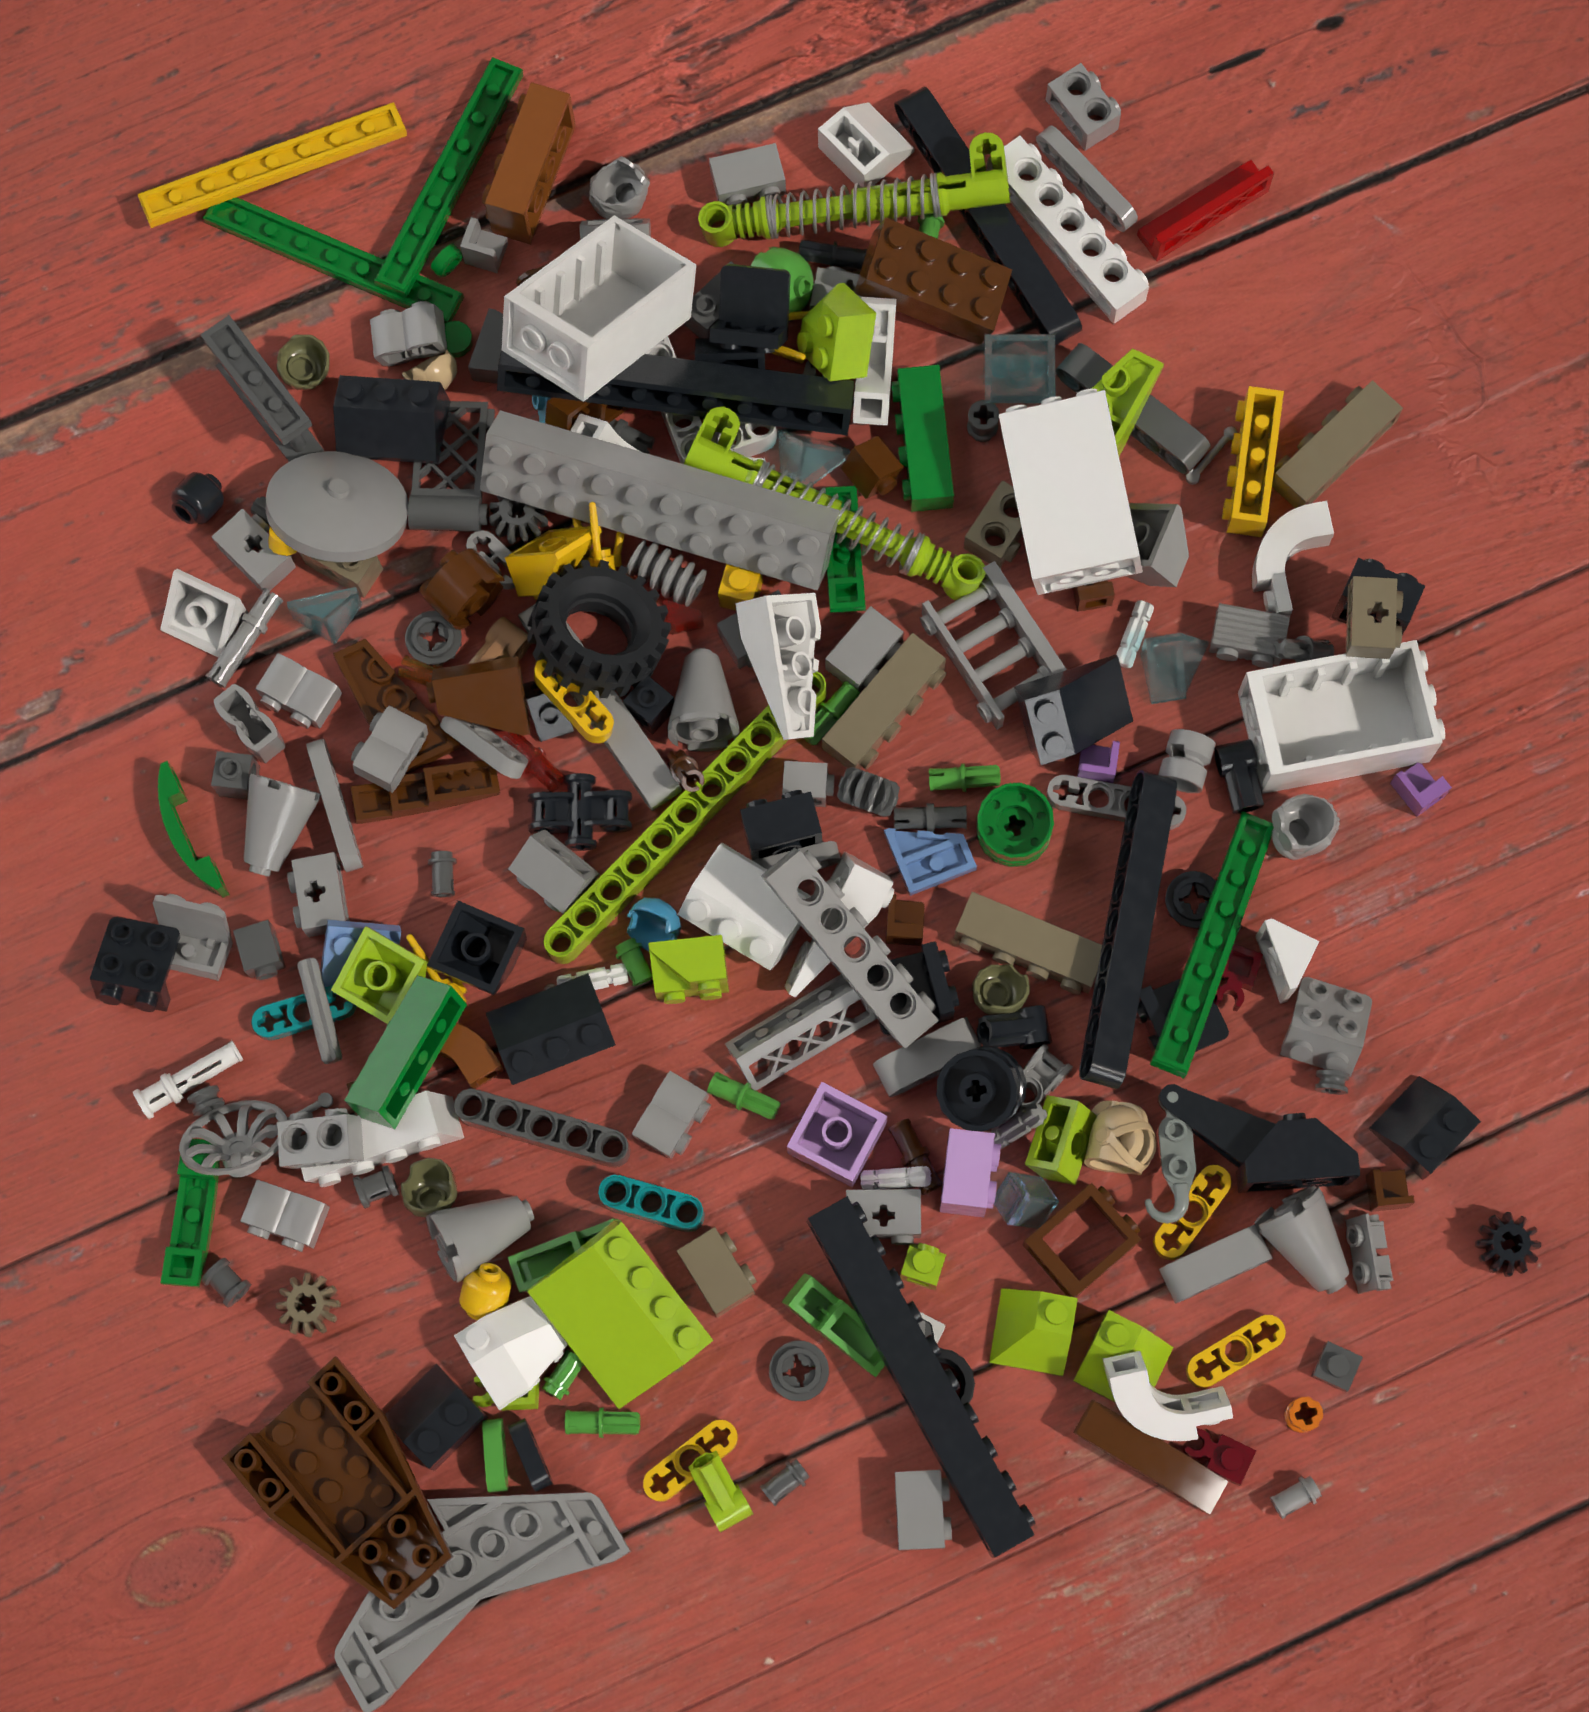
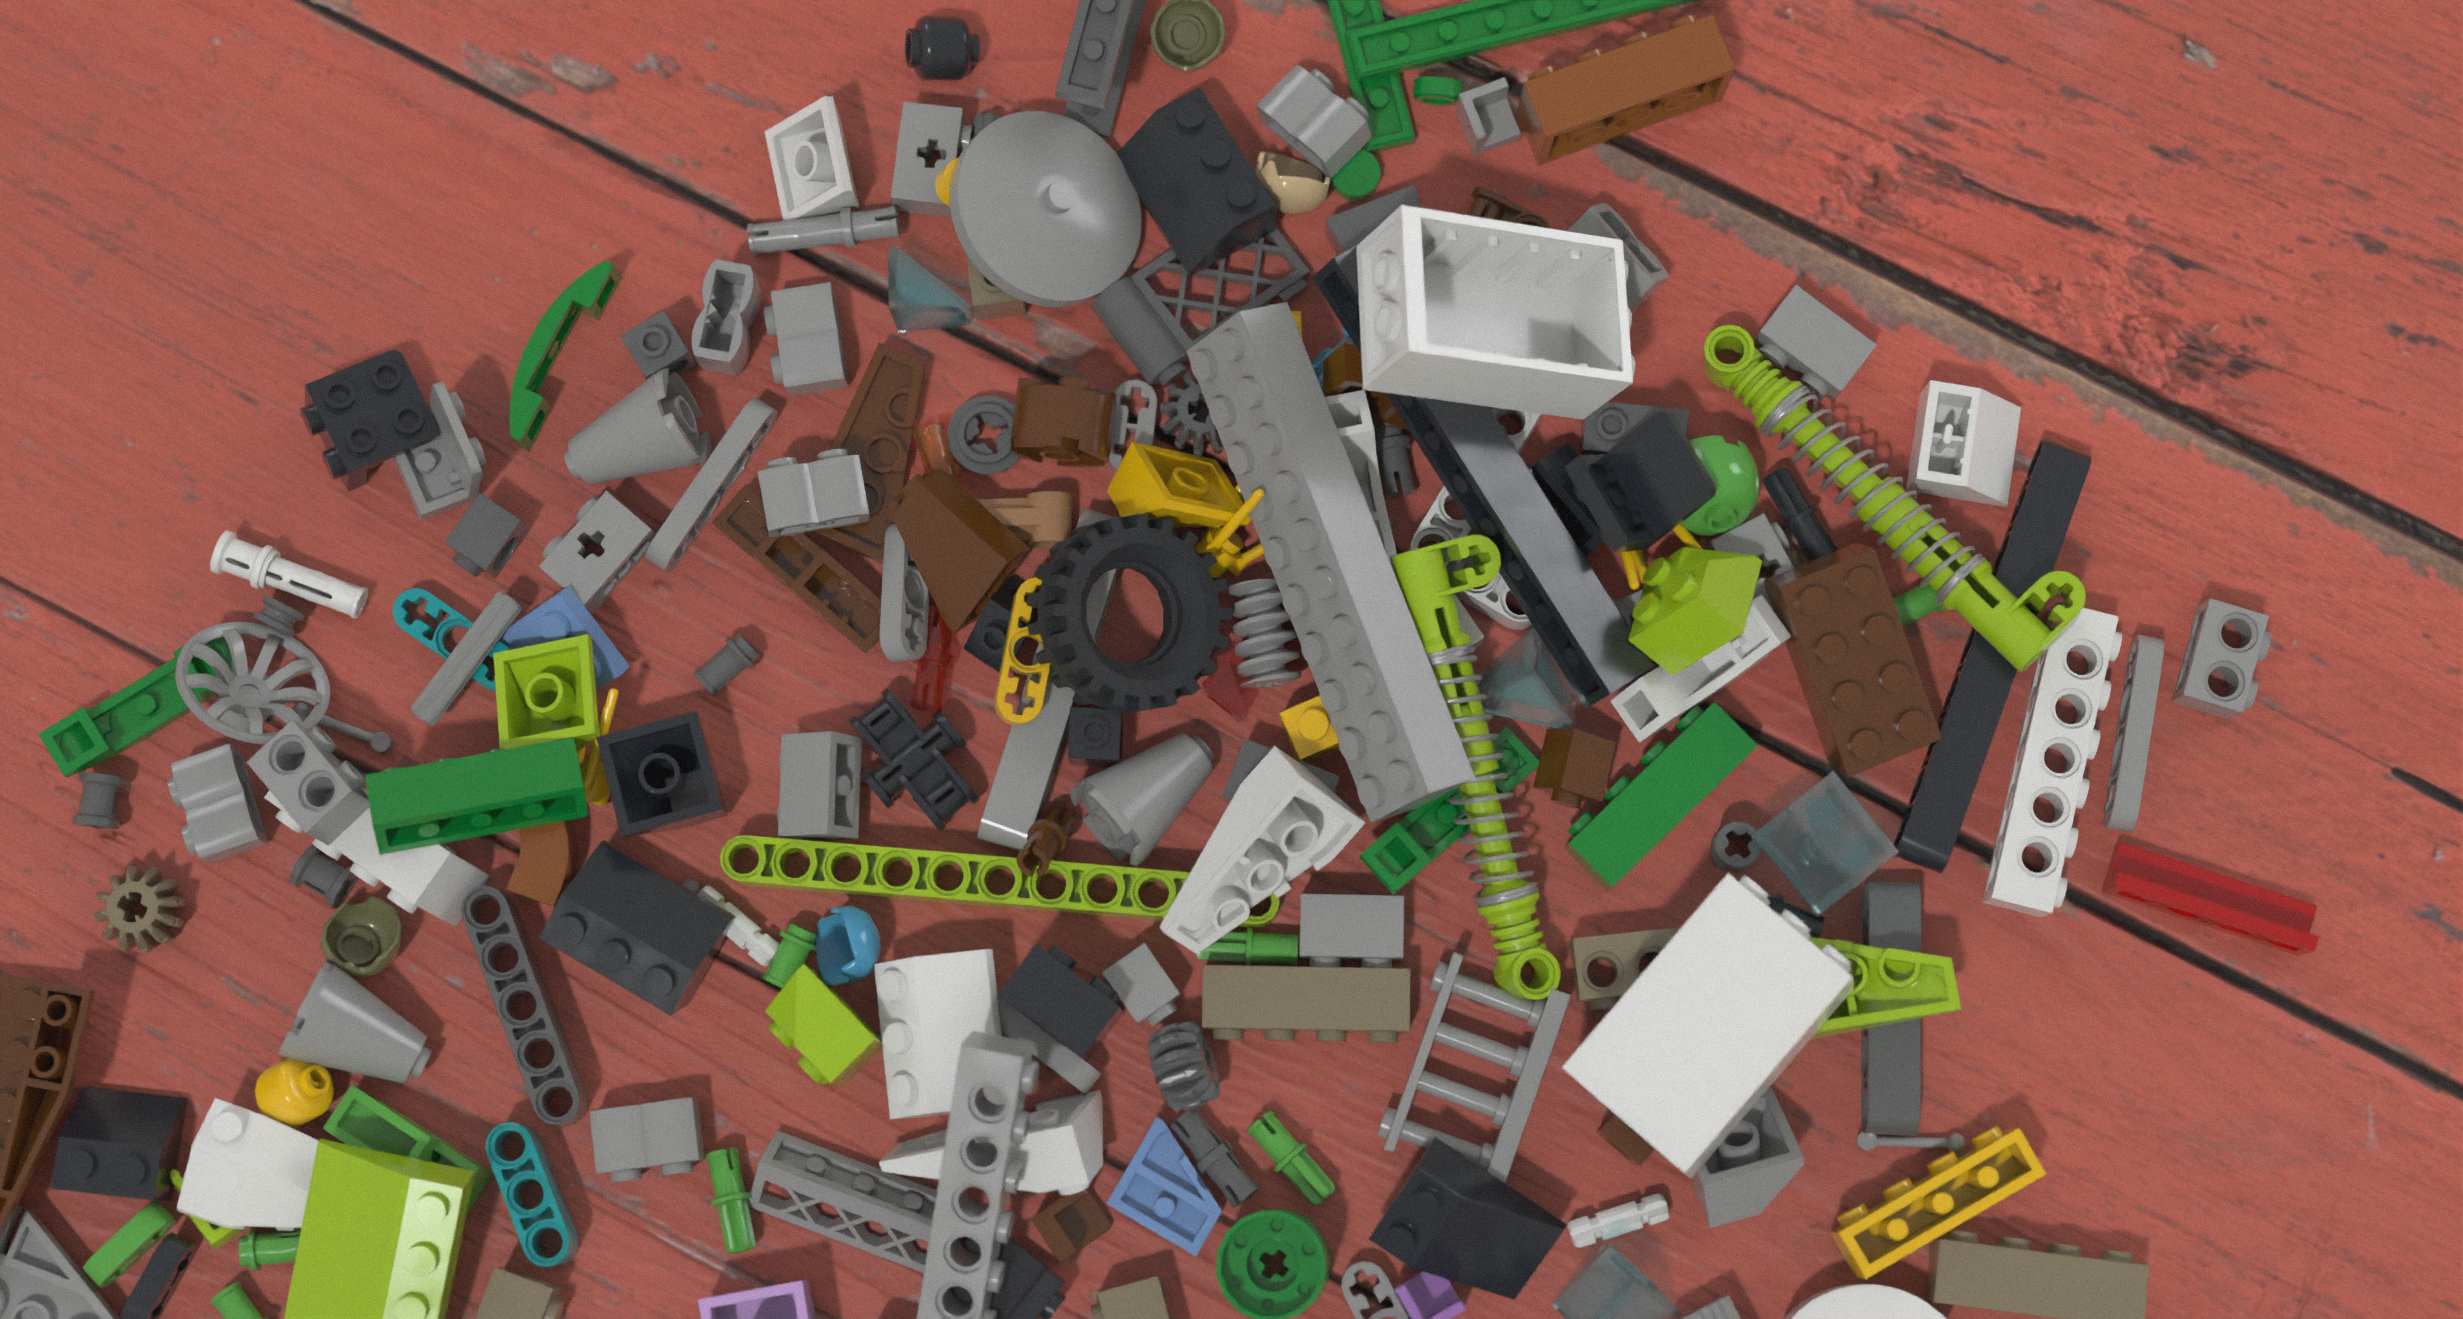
camera: 50 degrees right, 5 degrees up
(619, 189) = (1676, 213): light grey hair -> none

